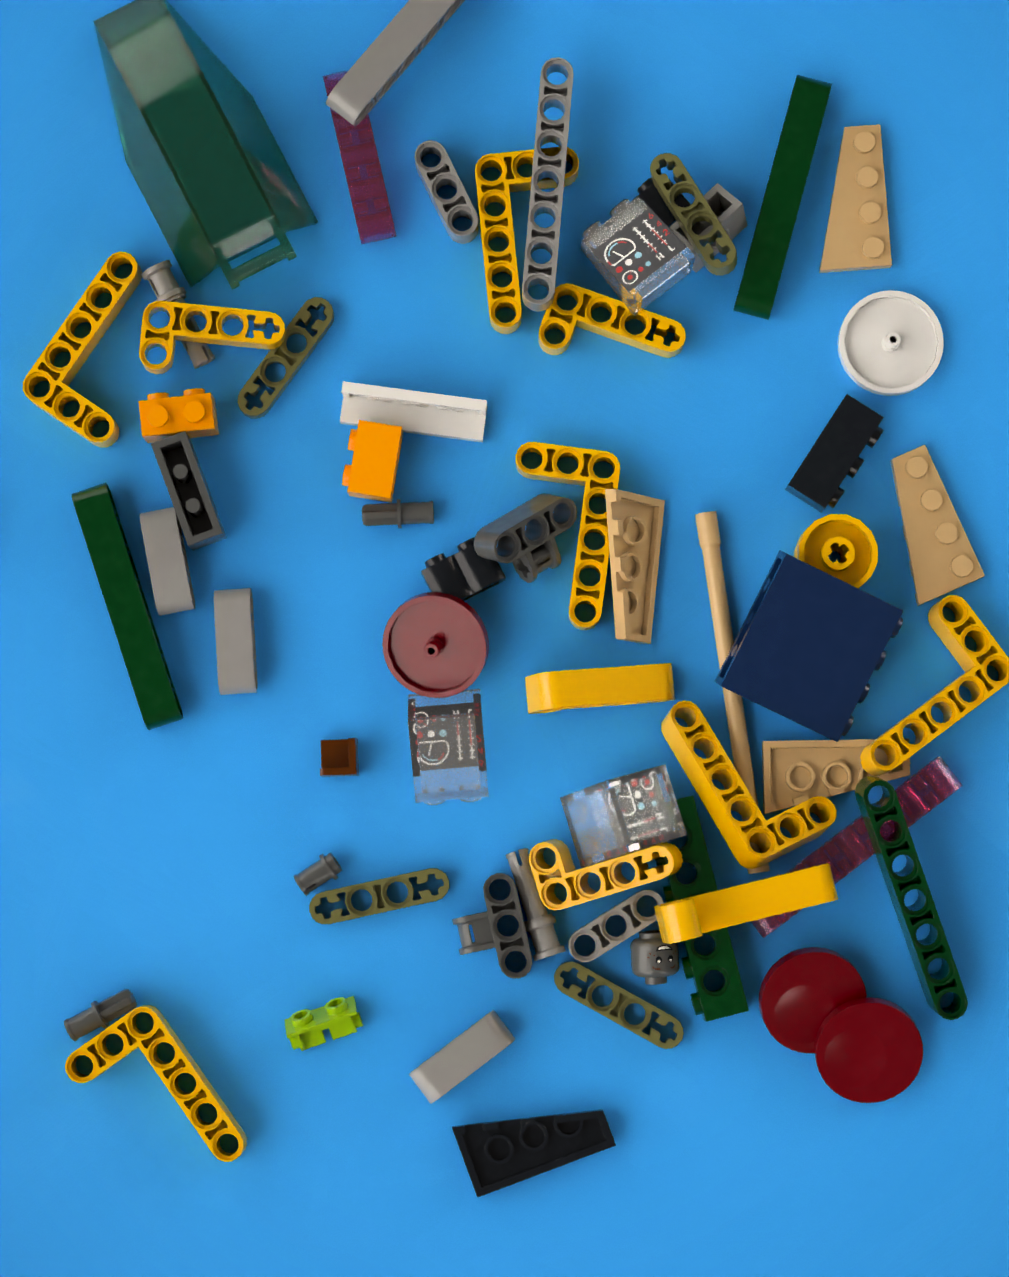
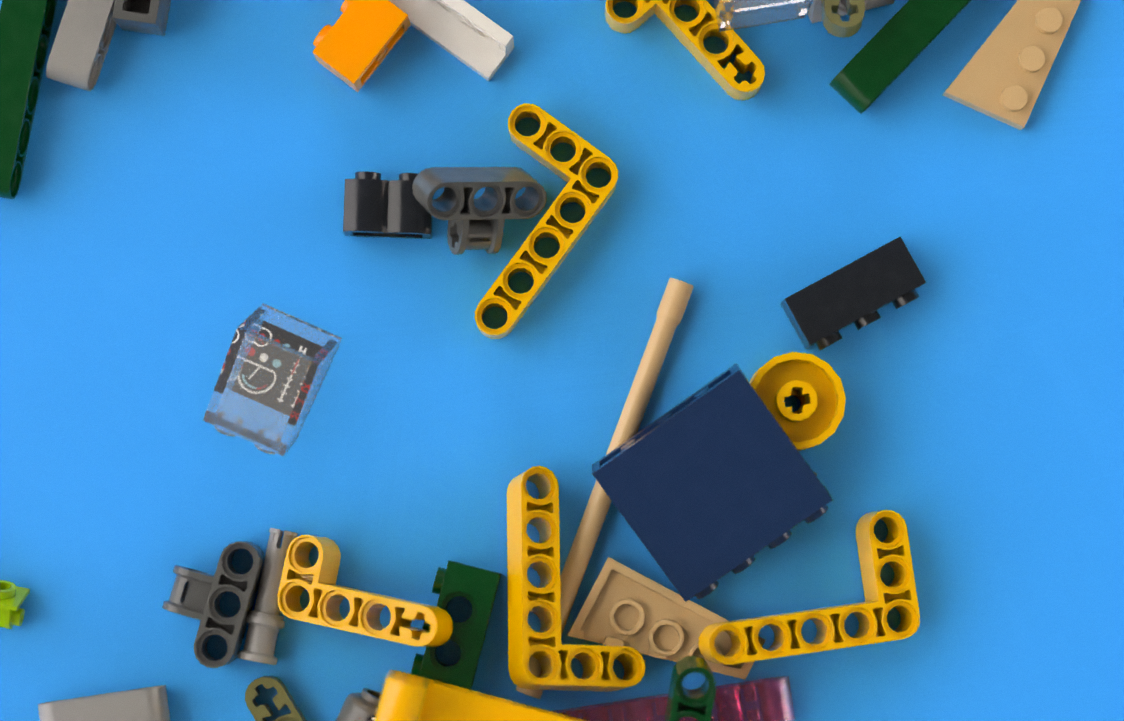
camera: 25 degrees right, 0 degrees up
(235, 641) = (111, 148): light grey beam -> none
(318, 873) = (62, 439): dark grey pin -> none
(339, 758) = (153, 330): reddish brown panel -> none
(380, 900) = (113, 501): olive beam -> none
(398, 513) = (357, 107): dark grey axle -> none
(435, 645) = (317, 265): dark red piece -> none
(598, 932) = (321, 669): light grey beam -> none
(599, 687) = (466, 405): yellow beam -> none
(623, 815) = (413, 555): clear slope -> none
(634, 553) = (581, 283): tan wing -> none
(890, 343) = (977, 209): white piece -> none
(933, 533) = (913, 432): tan wing -> none

